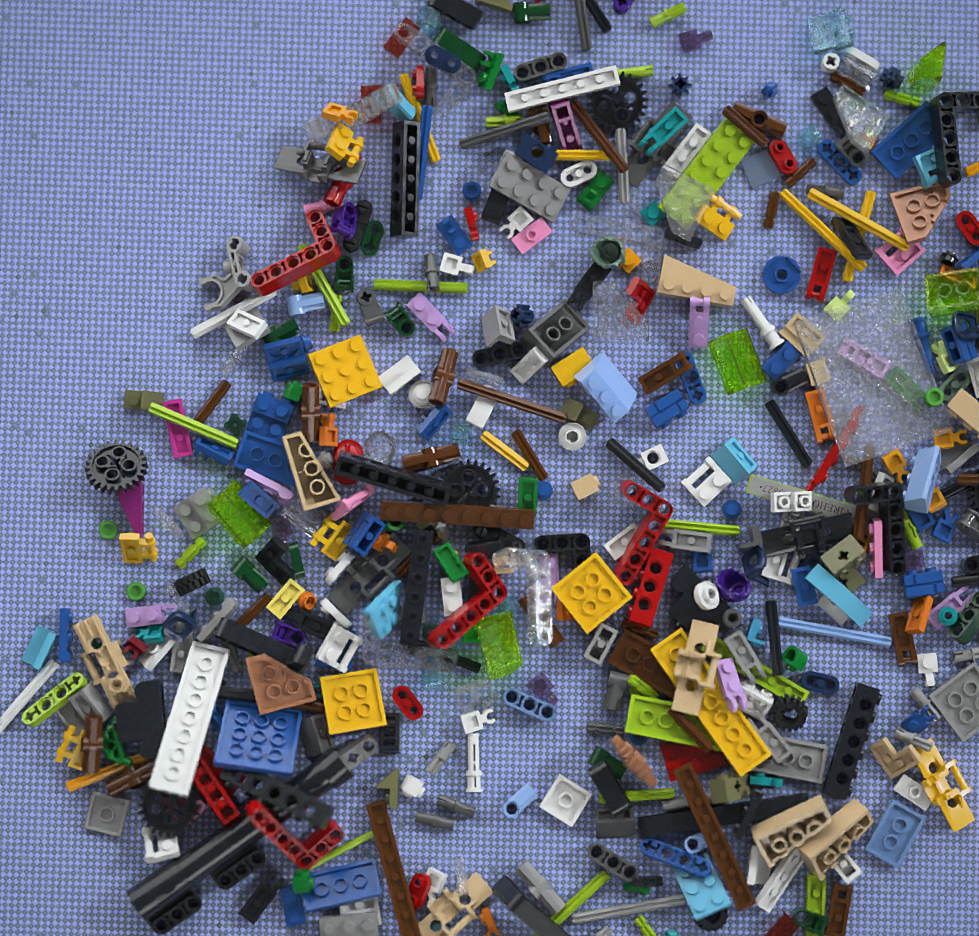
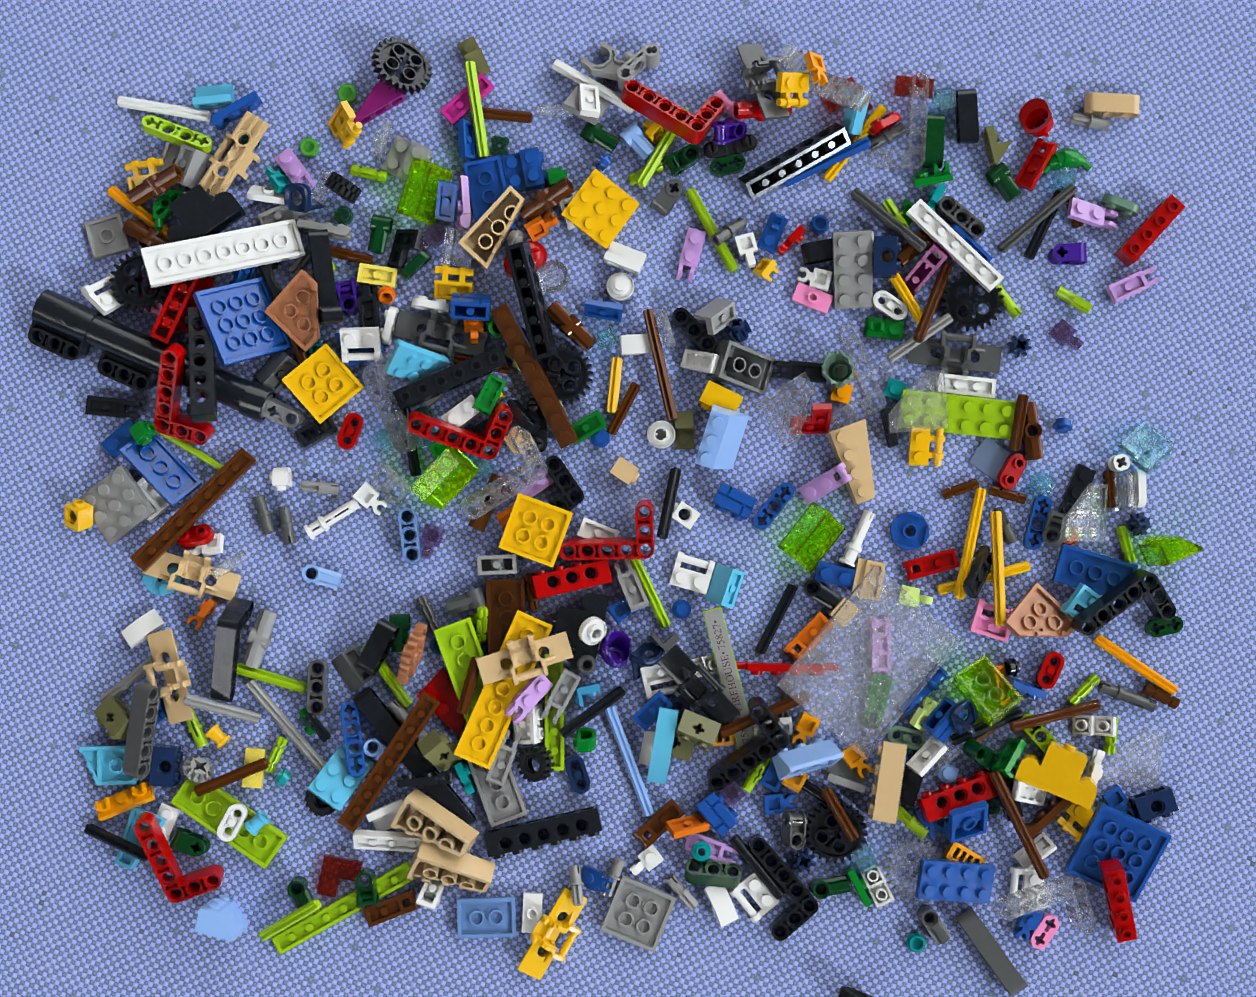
camera: 60 degrees right, 0 degrees up
(111, 685) = (211, 175): tan plate -> none
(134, 646) = (261, 173): dark red tile -> none
(286, 359) = (580, 153): blue slope -> none
(347, 505) = (491, 281): bright pink plate -> none
(391, 782) = (274, 459): olive slope -> none
(398, 318) = (672, 228): dark green piece -> none
(442, 60) = (917, 128): dark blue plate -> none
(442, 532) = (512, 373): dark grey axle -> none
(443, 376) = (645, 294): reddish brown piece -> none
(565, 800) = (347, 615): white plate -> none
(664, 129) = (973, 353): teal hinge -> none
(664, 373) = (763, 481): reddish brown plate -> none
(791, 501) = (718, 655): white slope -> none
(875, 548) = (723, 753): bright pink plate -> none
(892, 761) = (547, 878): tan plate -> none
(933, 397) = (883, 725): bright green tile -> none

